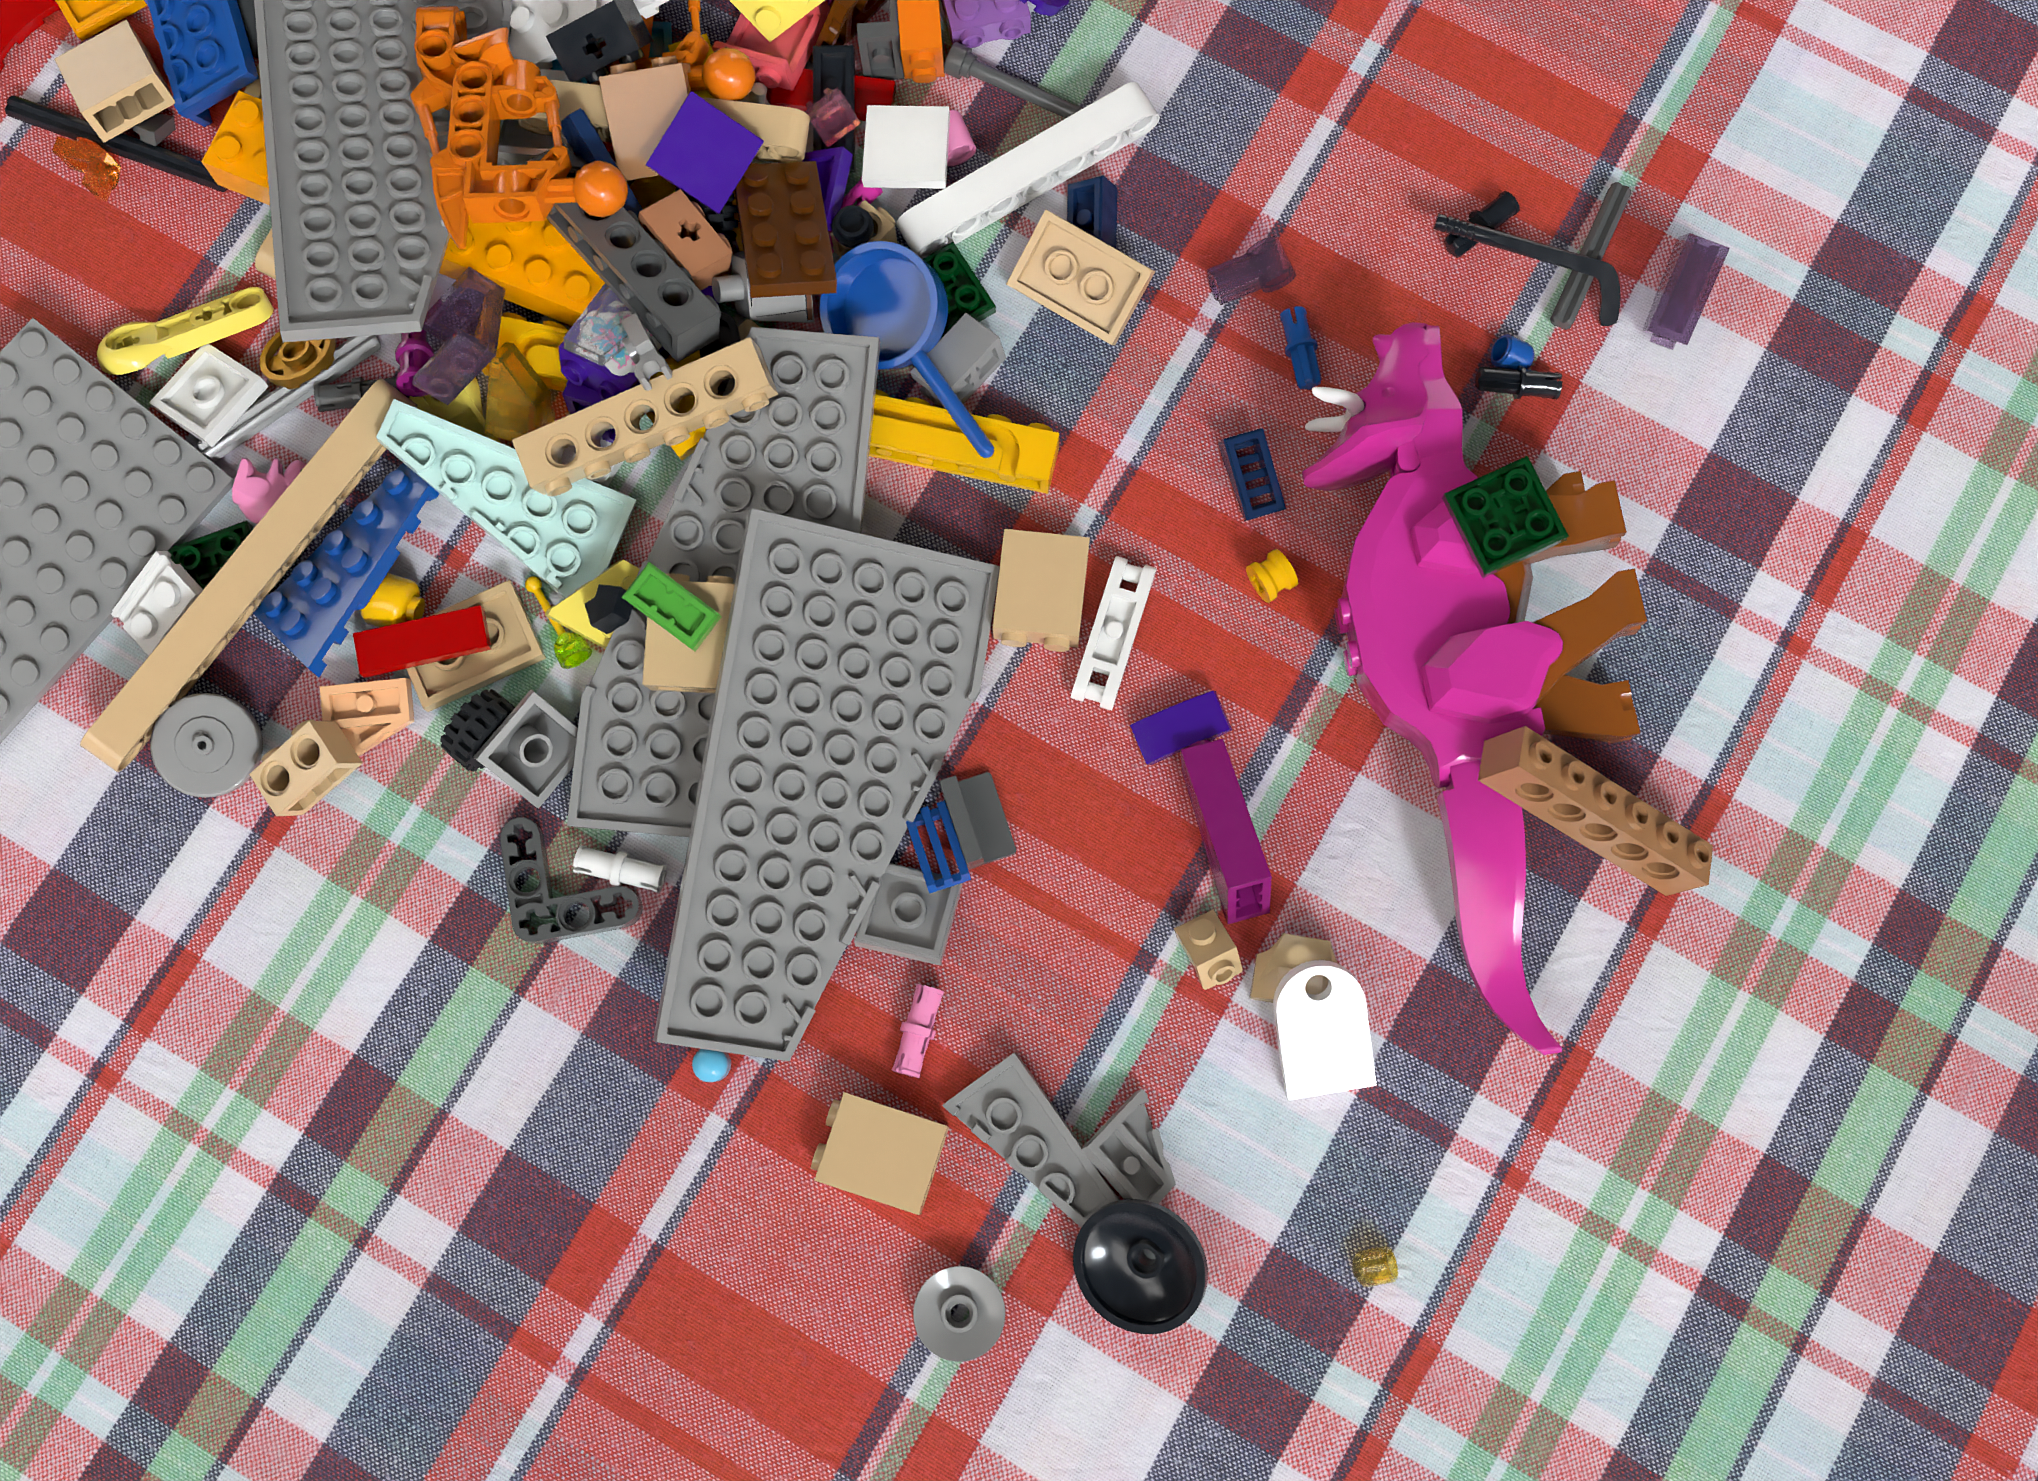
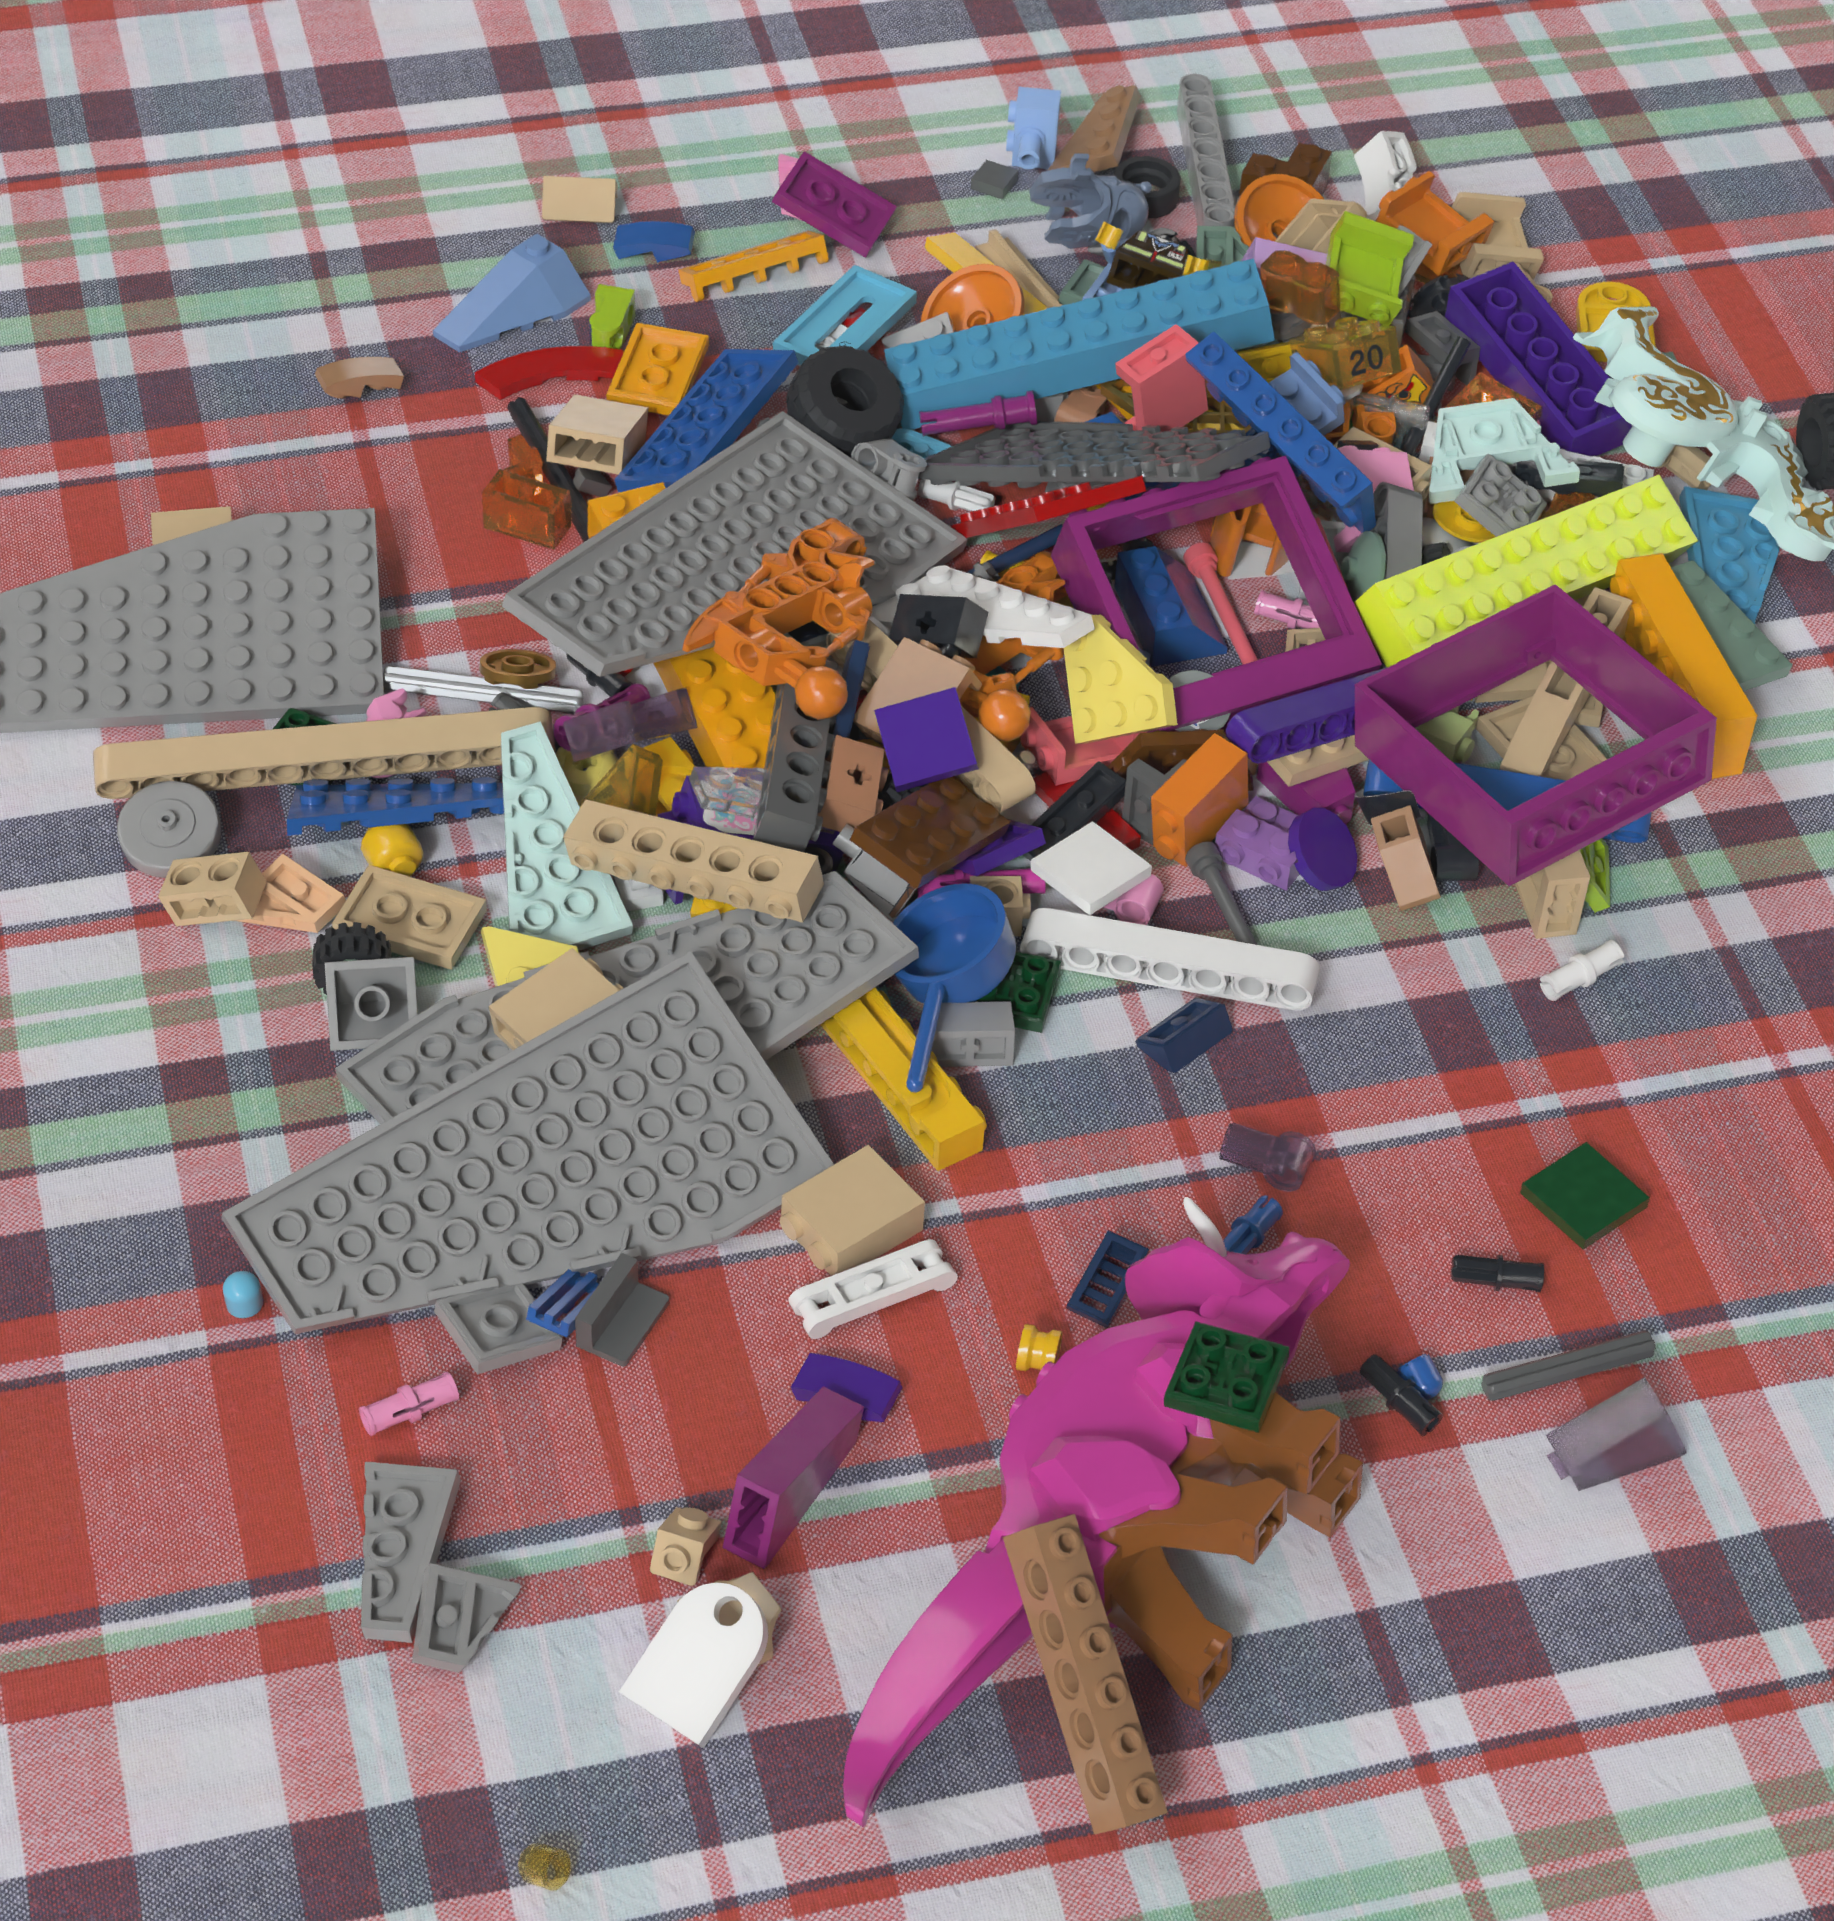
camera: 40 degrees right, 30 degrees down
(139, 343) = (424, 583): light yellow beam -> none
(140, 202) = (526, 509): none -> clear orange brick
(156, 600) = (252, 715): white plate -> none
(209, 394) = (430, 645): white tile -> none
(422, 641) = (381, 882): red tile -> none
(542, 900) = (263, 1103): dark grey beam -> none
(569, 647) = (479, 973): clear neon green hinge -> none
(608, 608) = (526, 956): black piece -> none
(619, 868) = (334, 1124): white pin -> none
(643, 352) = (738, 813): light grey plate -> none
(672, 606) = (564, 969): bright green plate -> none
(832, 116) = (1057, 809): clear pink tile -> none
(852, 226) = (990, 874): black plate -> none
(879, 1153) = (284, 1450): tan brick -> none
(956, 1339) = (203, 1580): light grey dish -> none
(1080, 277) = (1126, 1050): tan plate -> none
(1125, 1283) = (369, 1678): black dish -> none
(1475, 109) = (1584, 1195): none -> dark green tile
(1599, 269) = (1559, 1374): black piece -> none

